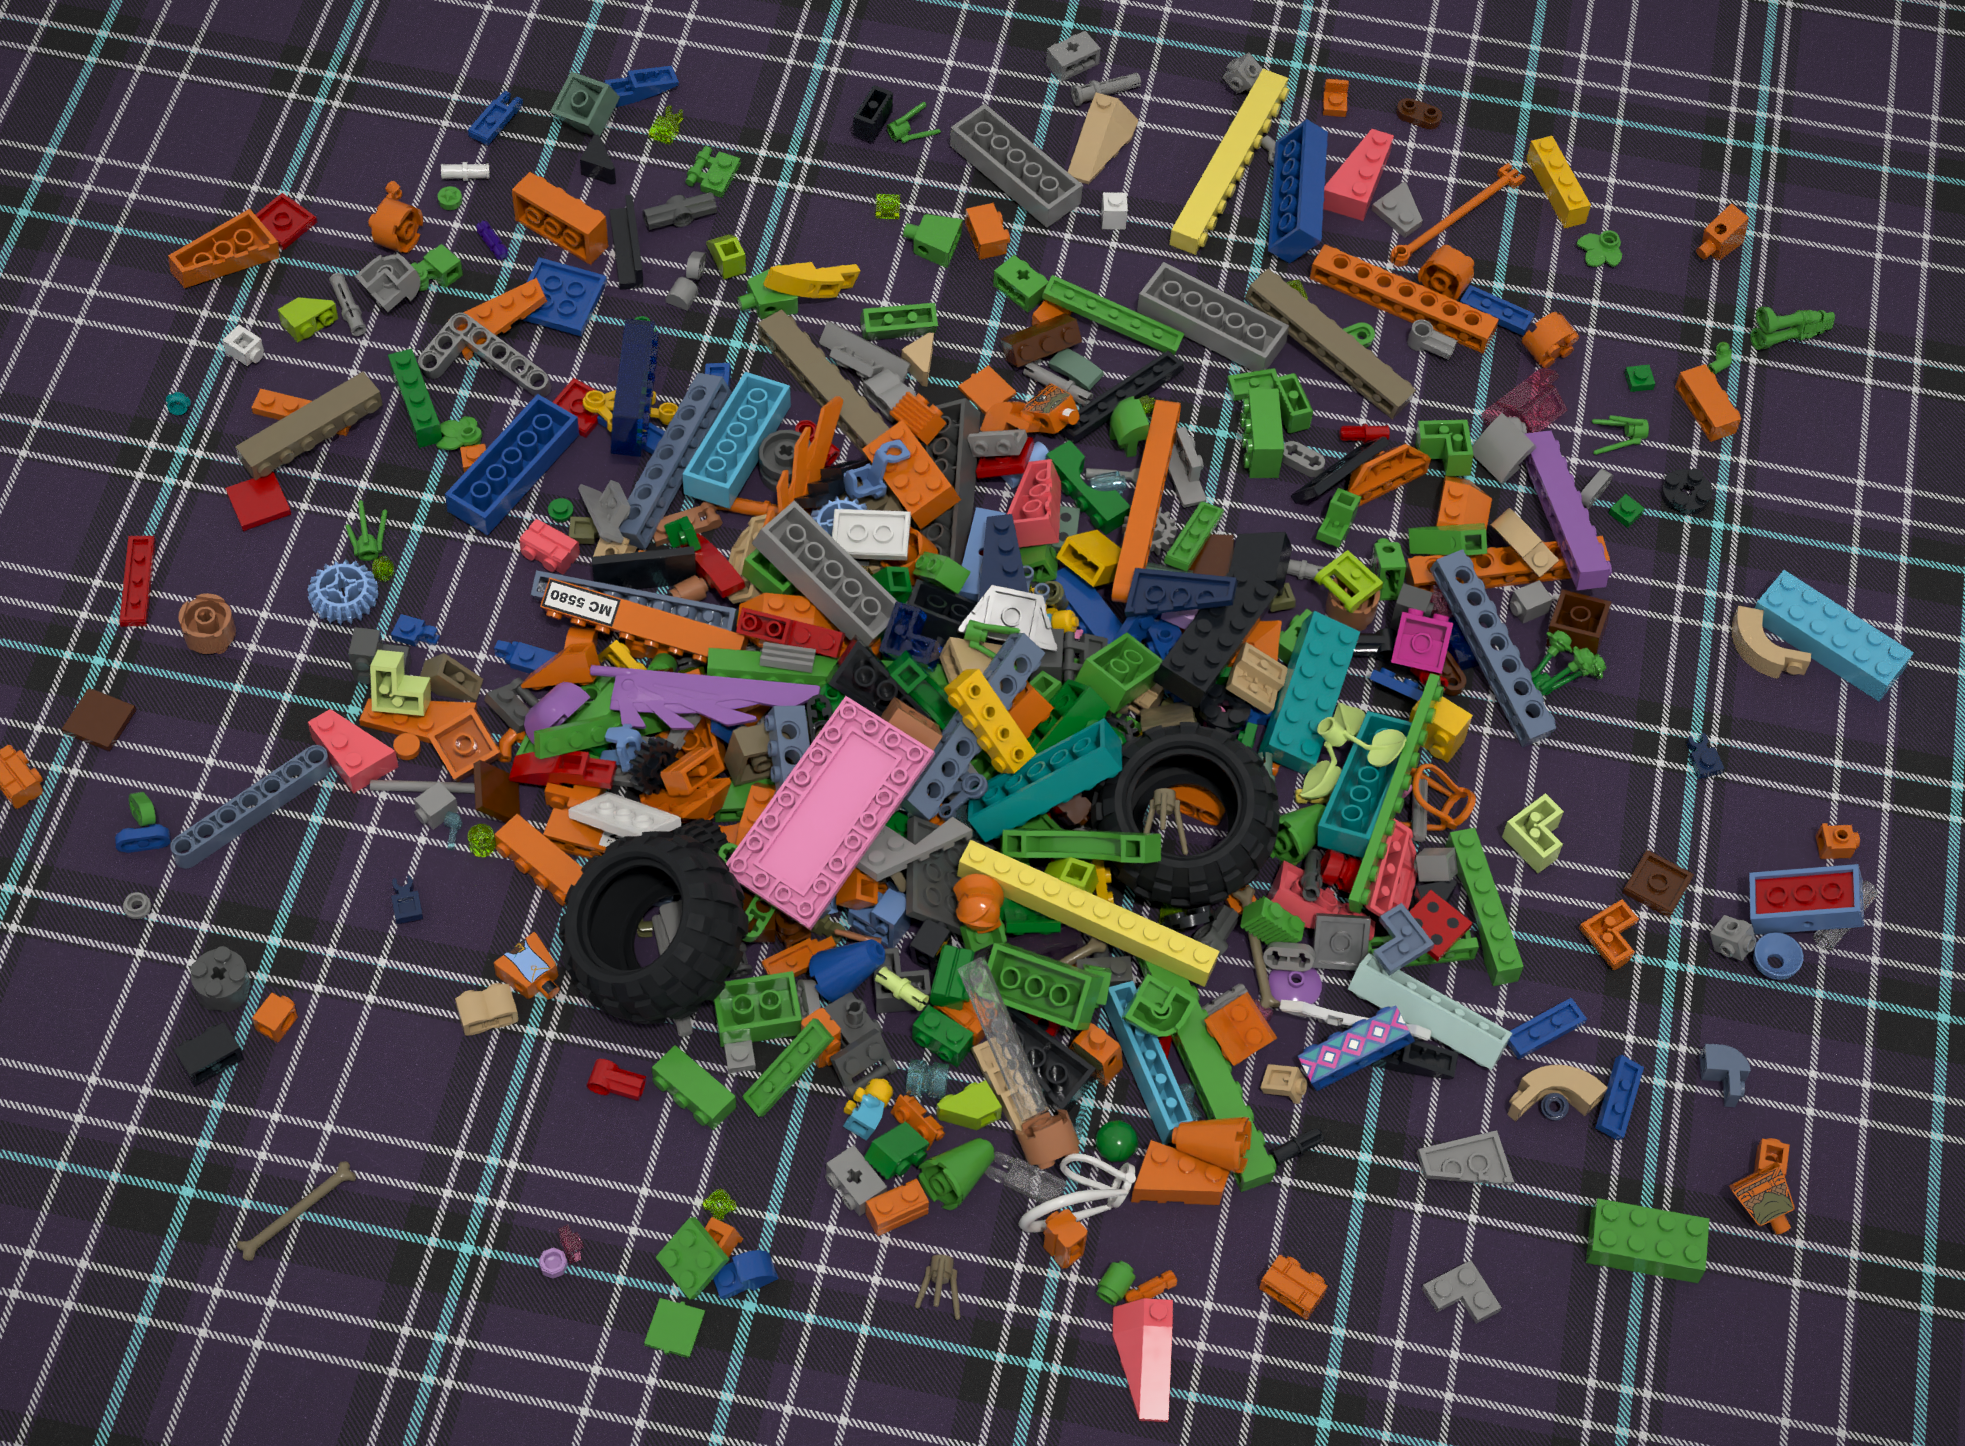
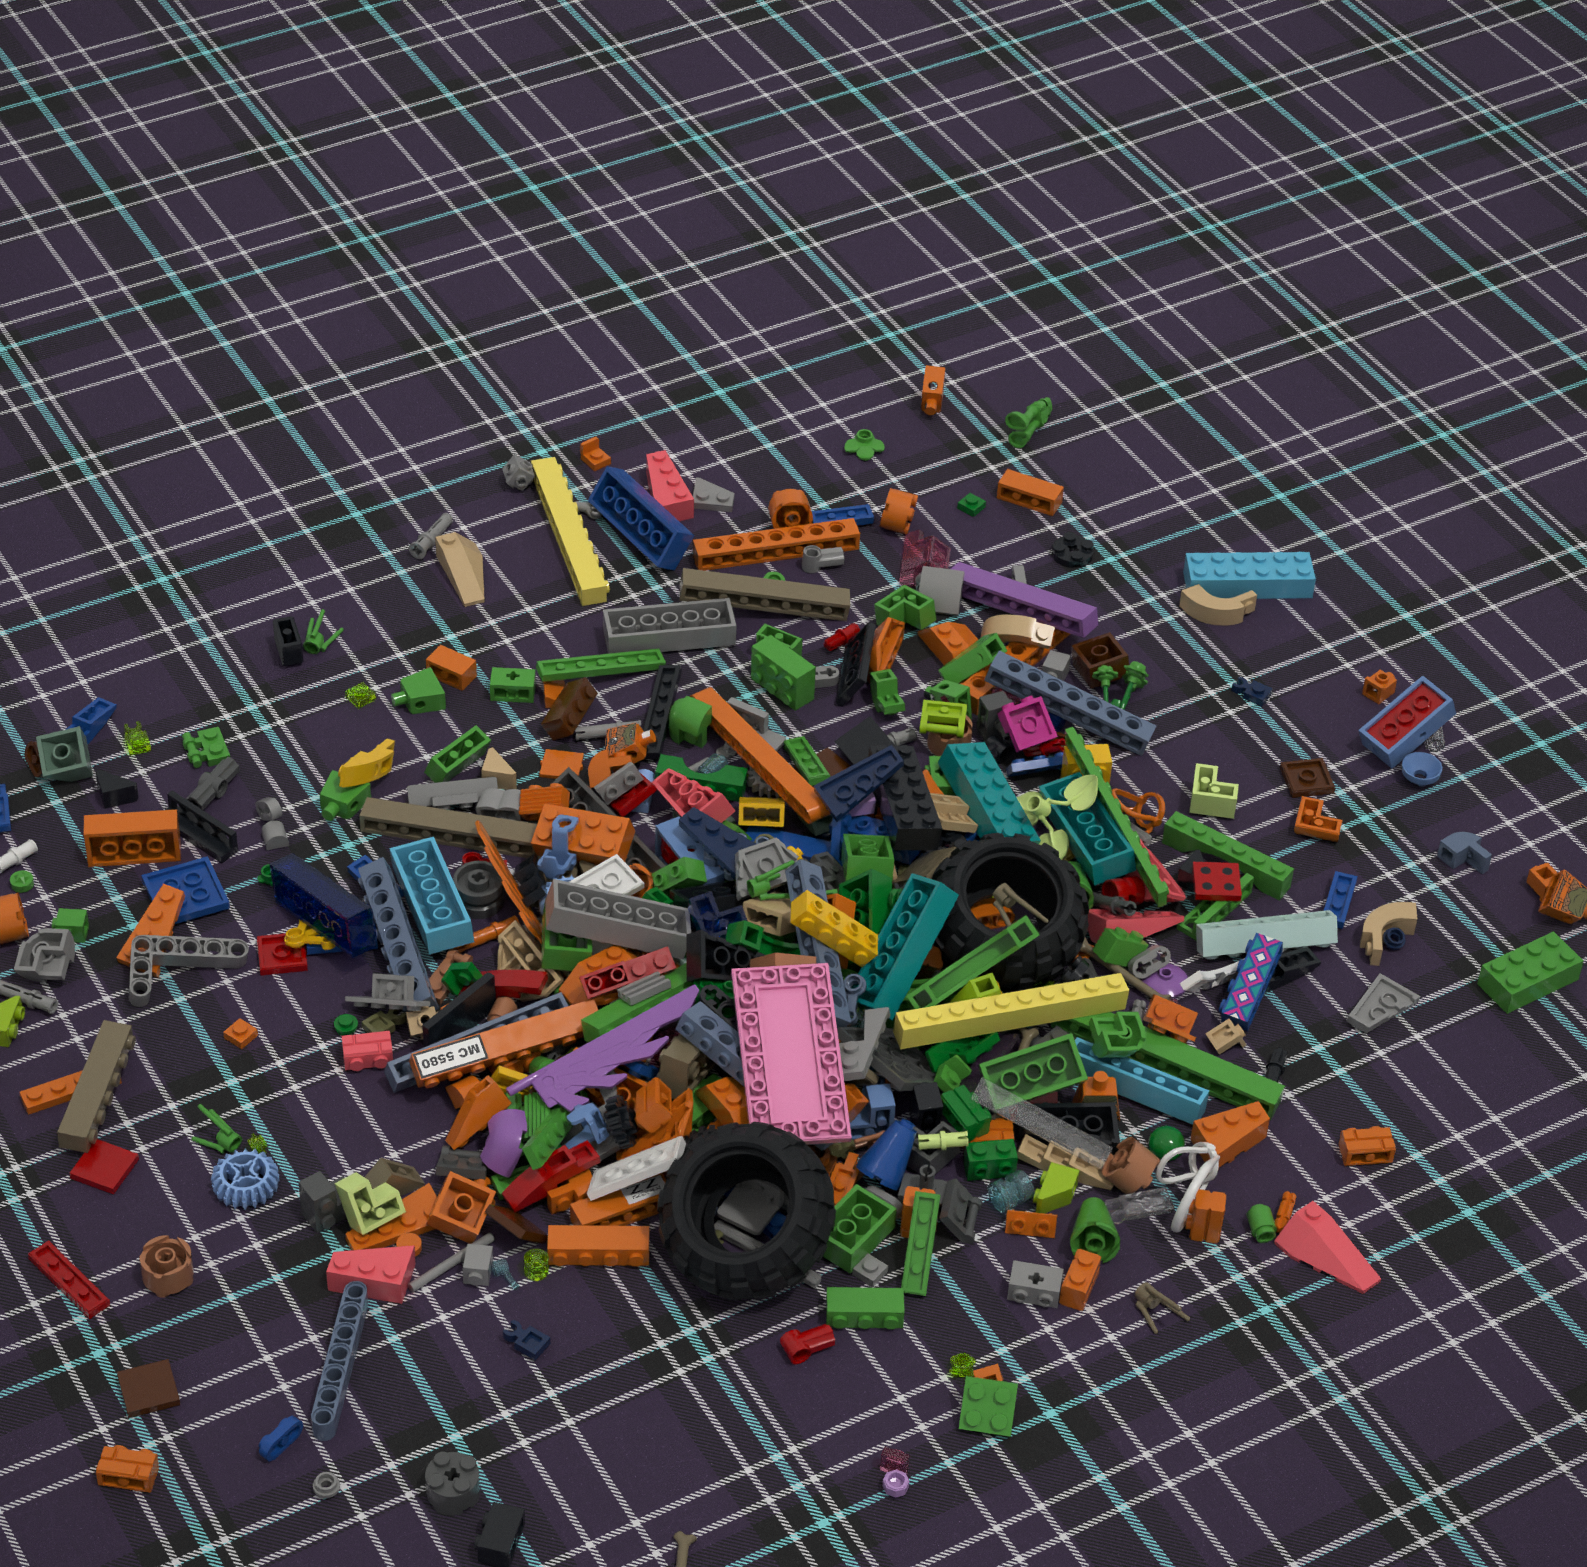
camera: 40 degrees left, 15 degrees down
(142, 809) = (262, 1421): bright green beam -> none
(275, 1017) = (520, 1478): orange brick -> none
(412, 630) = (330, 1169): blue plate -> none
(415, 397) = (175, 1028): green arch -> none
(459, 433) = (211, 1024): bright green plate -> none
(486, 1009) = (665, 1363): tan brick -> none
(492, 240) = (88, 888): dark purple axle -> none
(512, 464) = (280, 1015): blue brick -> none
(522, 656) = (428, 1132): blue hinge -> none
(529, 968) = (667, 1317): orange torso -> none
(674, 1328) = (1019, 1462): bright green piece -> none
(728, 255) = (285, 787): lime slope -> none
(746, 1271) = (1030, 1392): blue brick -> none
(870, 1111) = (996, 1237): piece -> none
(897, 1151) = (1045, 1243): green brick -> none
(979, 902) = (944, 1052): orange helmet -> none
(1016, 165) = (427, 614): light grey brick -> none
(1073, 56) = (386, 528): light grey brick -> none
(1076, 368) = (610, 711): sand green slope -> none
(1114, 210) = (526, 603): white brick -> none
(1216, 1141) = (1239, 1087): orange cone -> none
(1241, 383) = (736, 652): bright green plate -> none
(1340, 941) = (1170, 929): flat silver plate -> none
(1407, 943) = (1215, 894): sand blue plate -> none
(1419, 113) = (658, 434): reddish brown plate -> none
(1436, 864) = (1175, 849): light grey brick -> none
(1466, 1285) = (1460, 1074): light grey plate -> none
(1510, 178) = (743, 517): orange hinge -> none
(1558, 182) = (796, 420): yellow brick -> none
(1619, 1097) = (1426, 908): blue plate -> none
(1626, 511) = (1050, 582): green plate -> none
(1633, 428) = (1003, 533): bright green plant -> none
(1723, 358) = (1007, 461): bright green arm -> none
(1733, 937) = (1387, 774): light grey brick -> none

